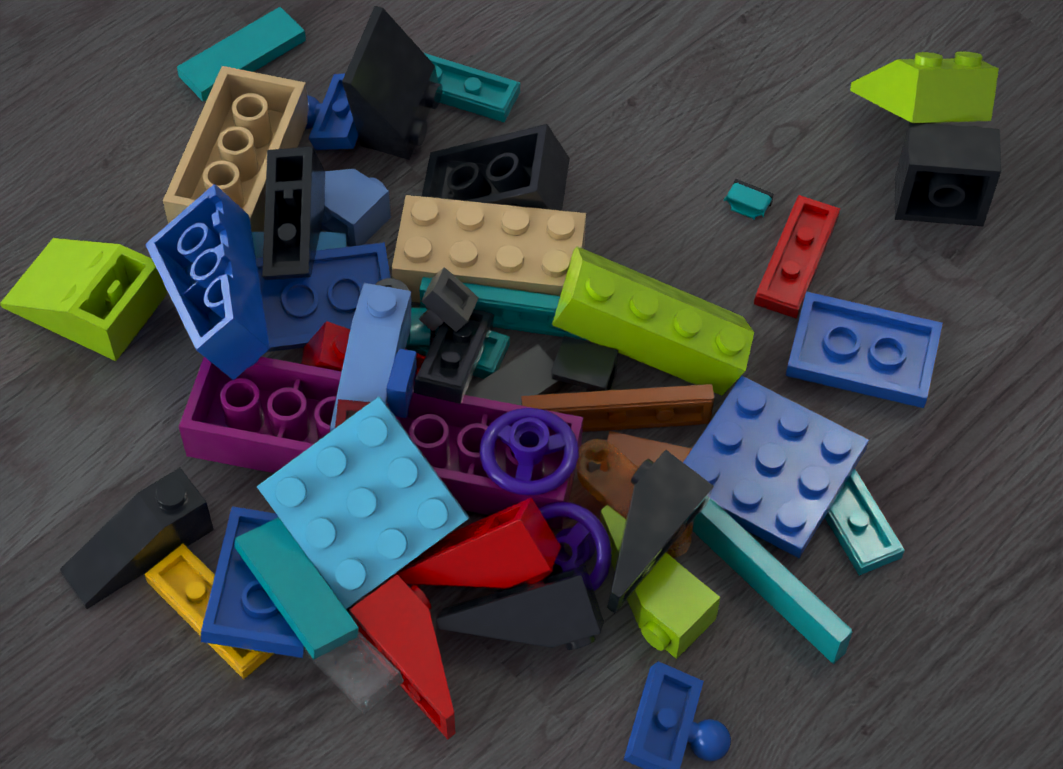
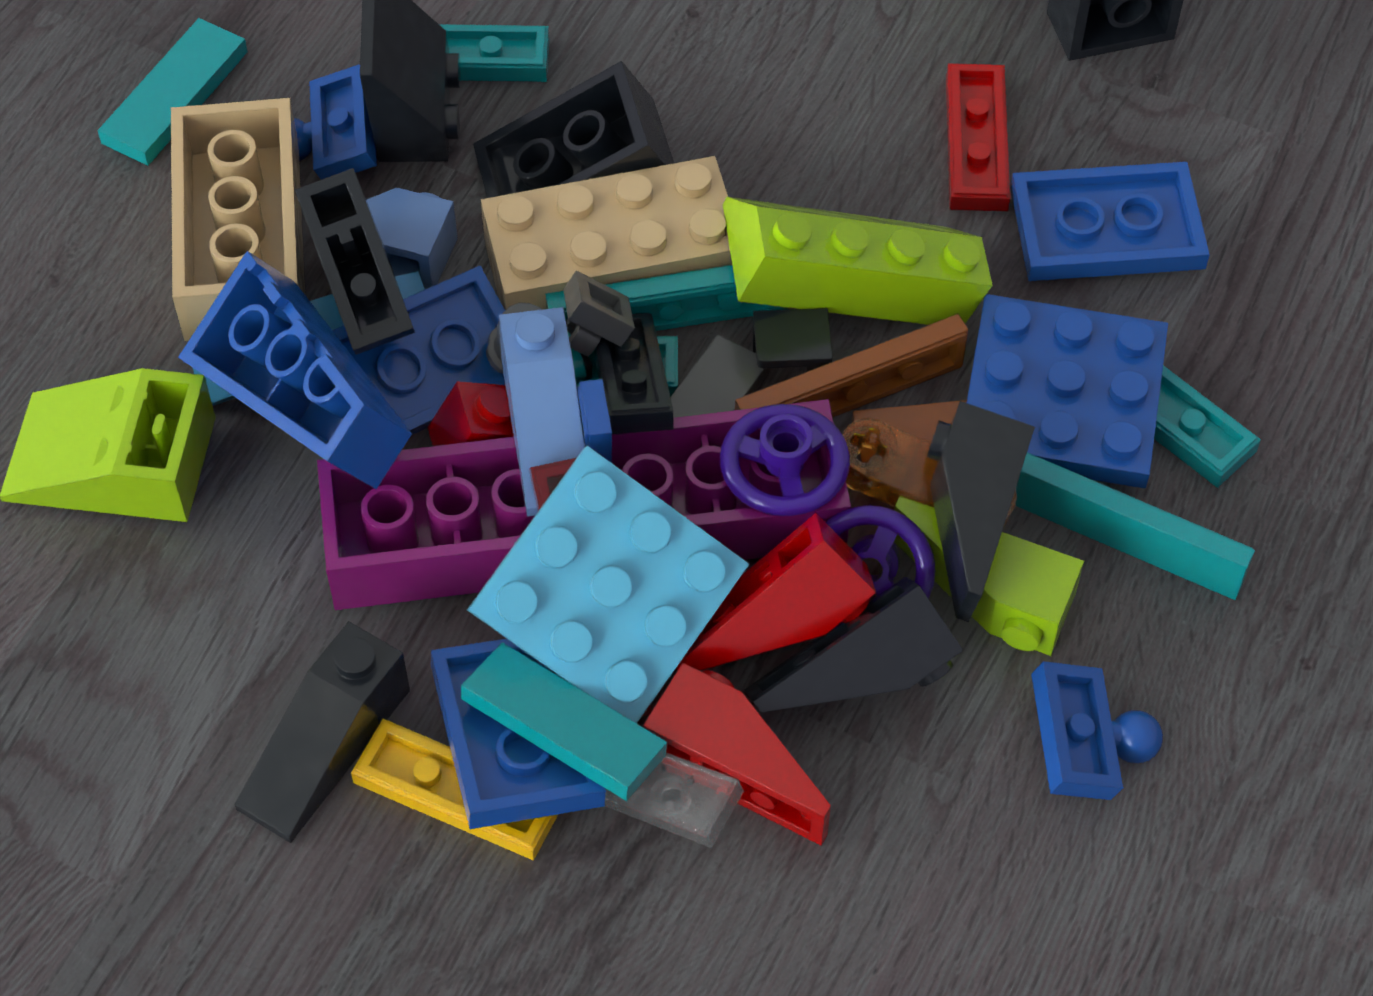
camera: 20 degrees left, 0 degrees up
(748, 199) = (889, 87): teal piece -> none

